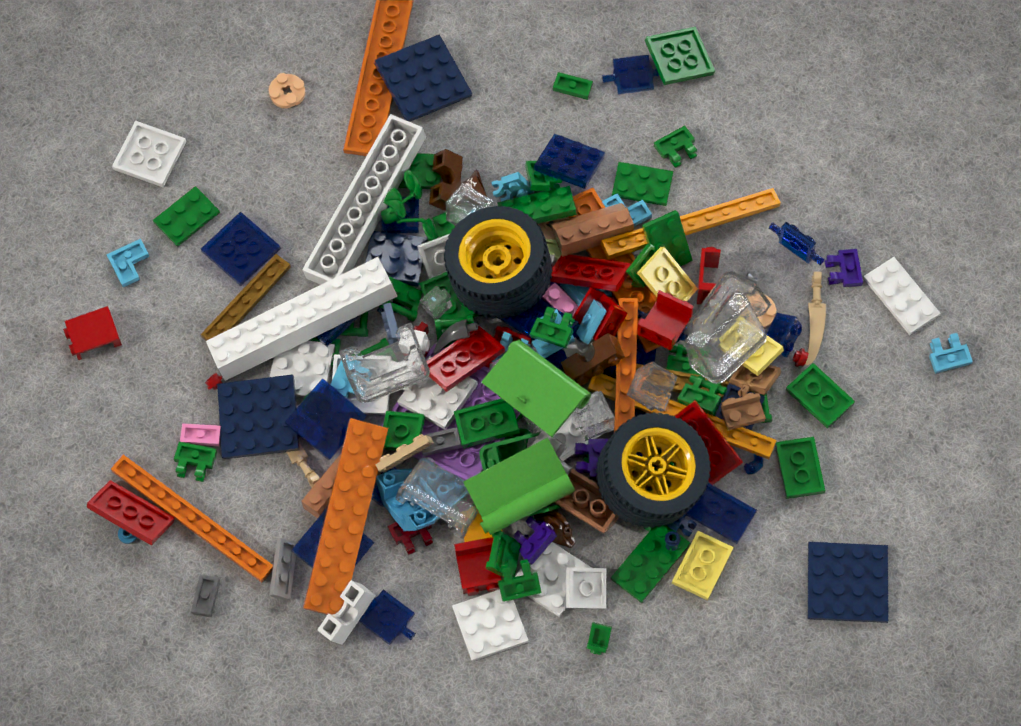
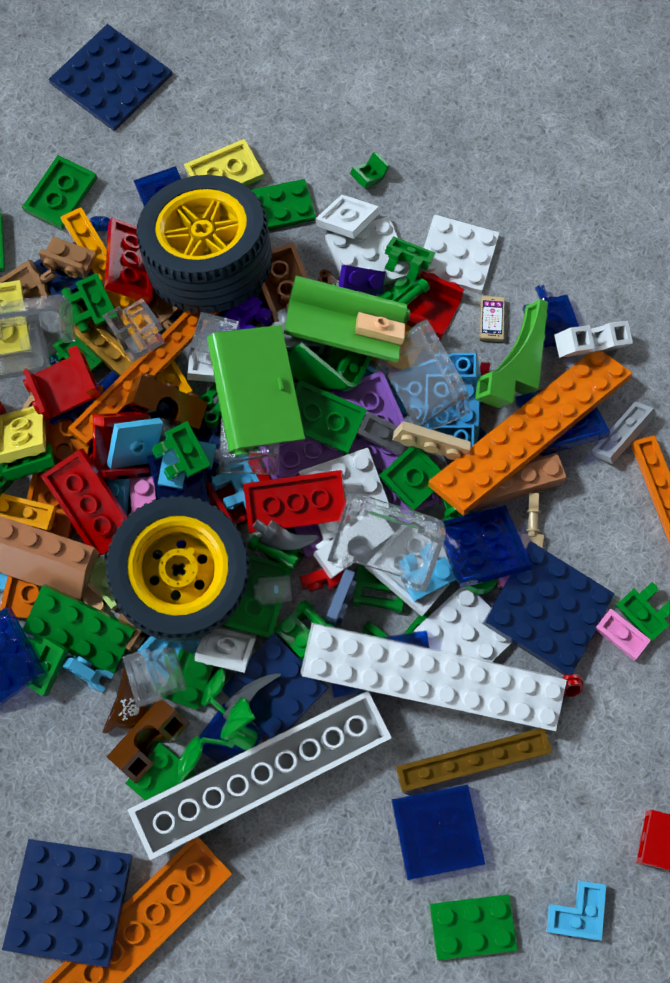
camera: 150 degrees left, 5 degrees up
(383, 553) = (522, 365): none -> bright green arch
(408, 234) = (249, 691): none -> dark grey bar
(430, 591) = (492, 319): none -> tile
(492, 497) = (380, 328): none -> light nougat plate

